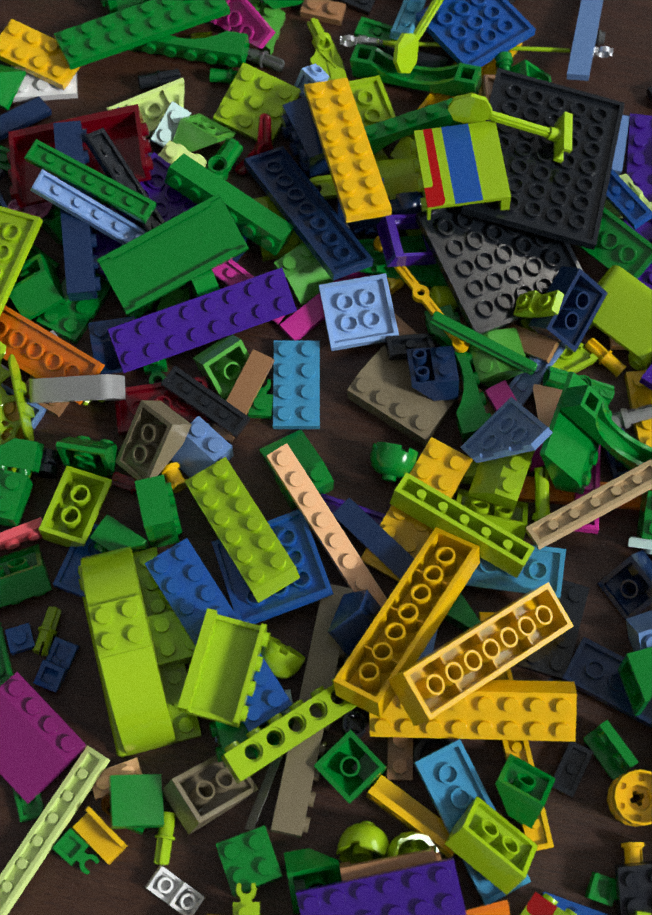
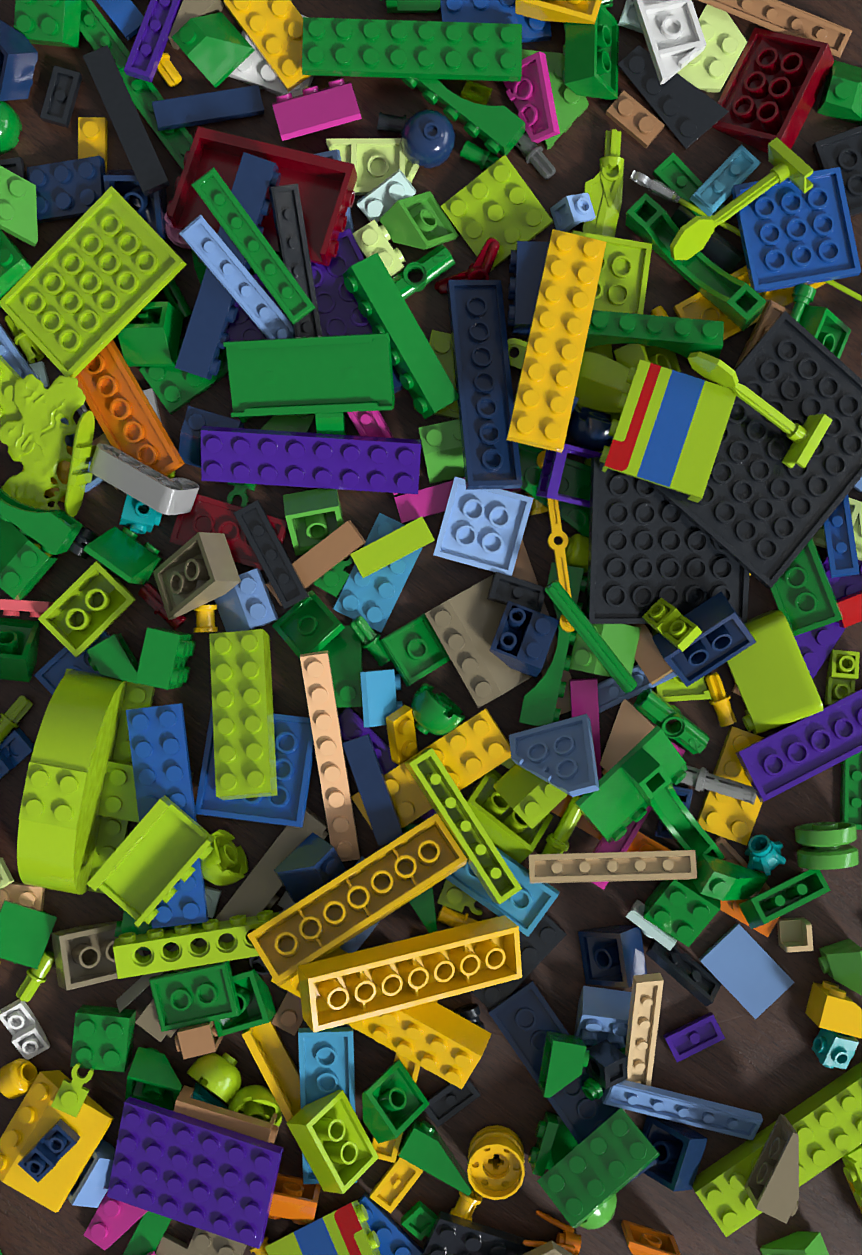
camera: 30 degrees right, 20 degrees up
(85, 419) = (133, 516): none -> teal brick
(90, 90) = (316, 109): none -> dark pink slope
(182, 75) = (427, 138): none -> dark blue cylinder
(258, 441) = (308, 625): none -> green plate
(296, 357) = (392, 547): none -> lime tile
(311, 776) = (195, 996): none -> green tile
(315, 434) = (370, 640): none -> green axle
(331, 812) = (197, 1040): none -> medium nougat brick
(347, 475) = (379, 695): none -> dark azure slope
(353, 425) = (415, 650): none -> green plate
(375, 488) = (401, 734): none -> yellow plate
(486, 600) = (456, 899): none -> lime plate
(564, 865) = (395, 1184): none -> yellow plate
(578, 822) = (429, 1152): none -> green slope
(610, 750) = (496, 1101): green bracket -> none

